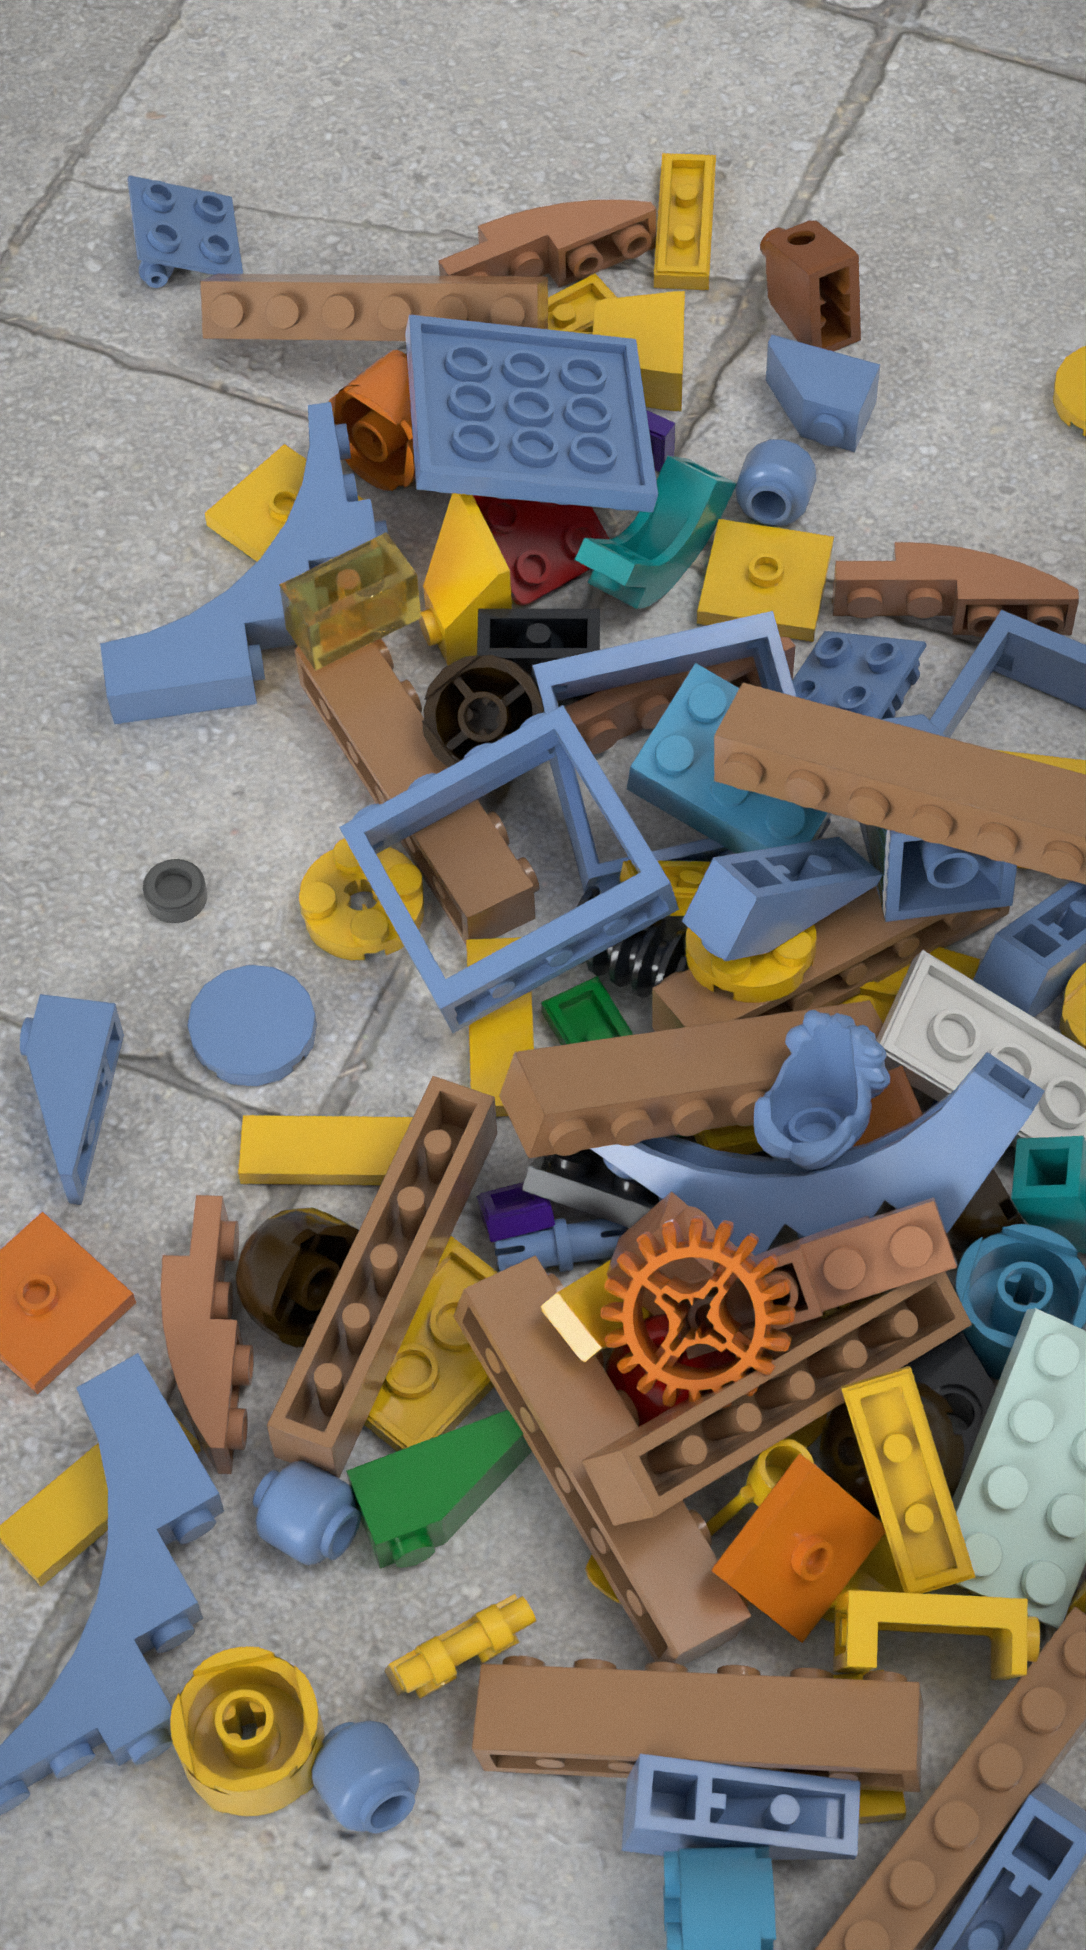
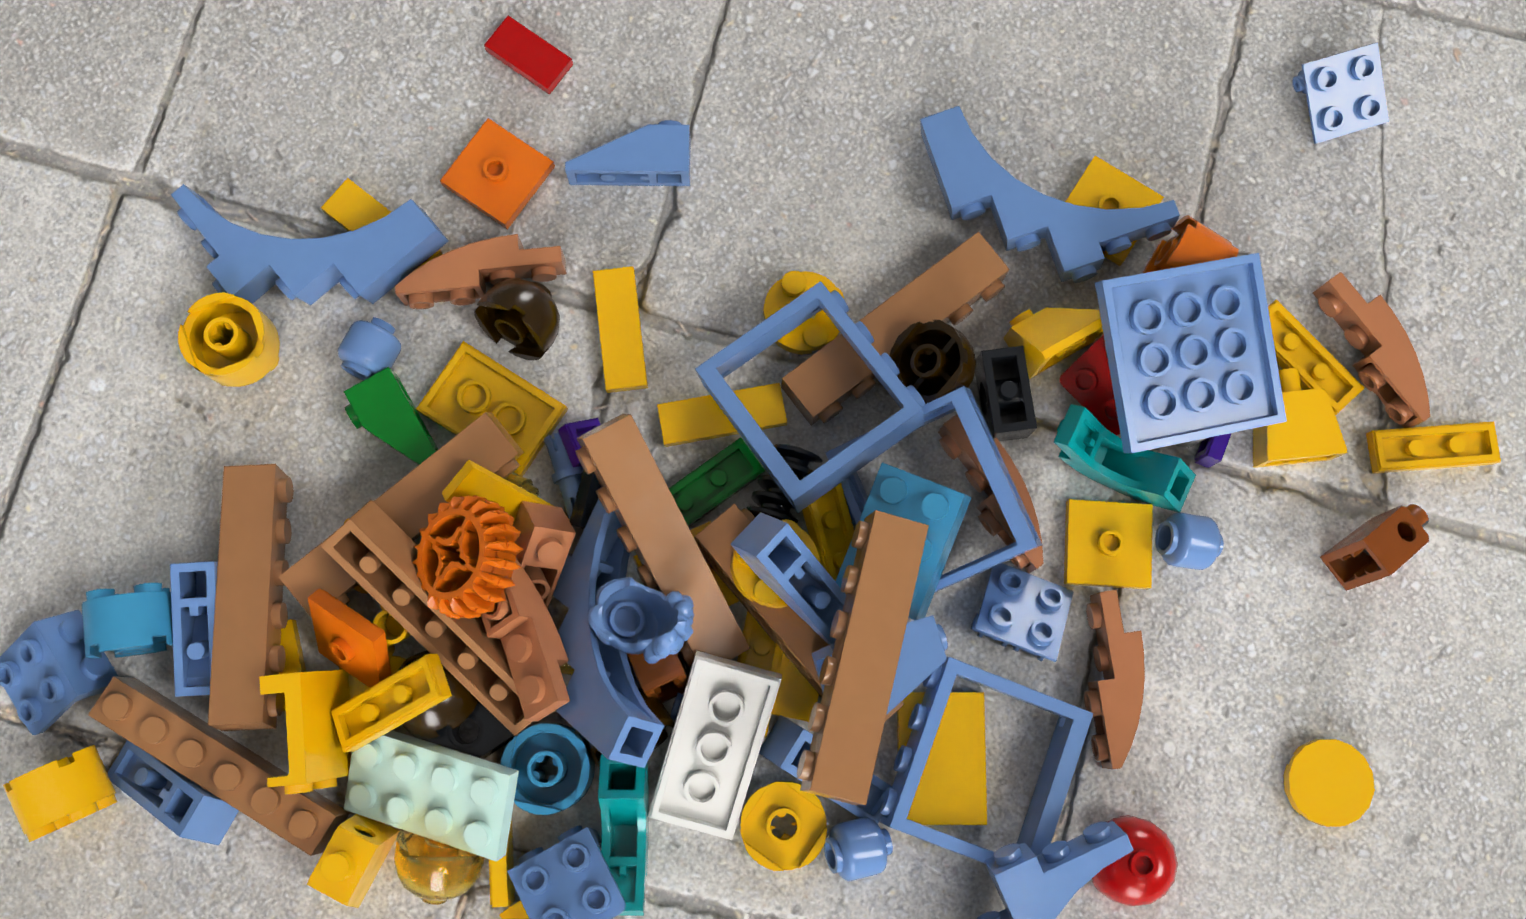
camera: 75 degrees right, 20 degrees up
(175, 891) = (795, 195): dark grey tile -> none
(252, 1025) = (702, 260): medium blue tile -> none
(350, 601) = (1005, 256): clear yellow brick -> none
(362, 304) = (1287, 234): medium nougat brick -> none
(366, 1776) = (215, 410): medium blue head -> none
(383, 1278) = (511, 366): medium nougat brick -> none
(484, 1634) = (288, 450): yellow plate -> none
(822, 391) = (1280, 568): medium blue slope -> none

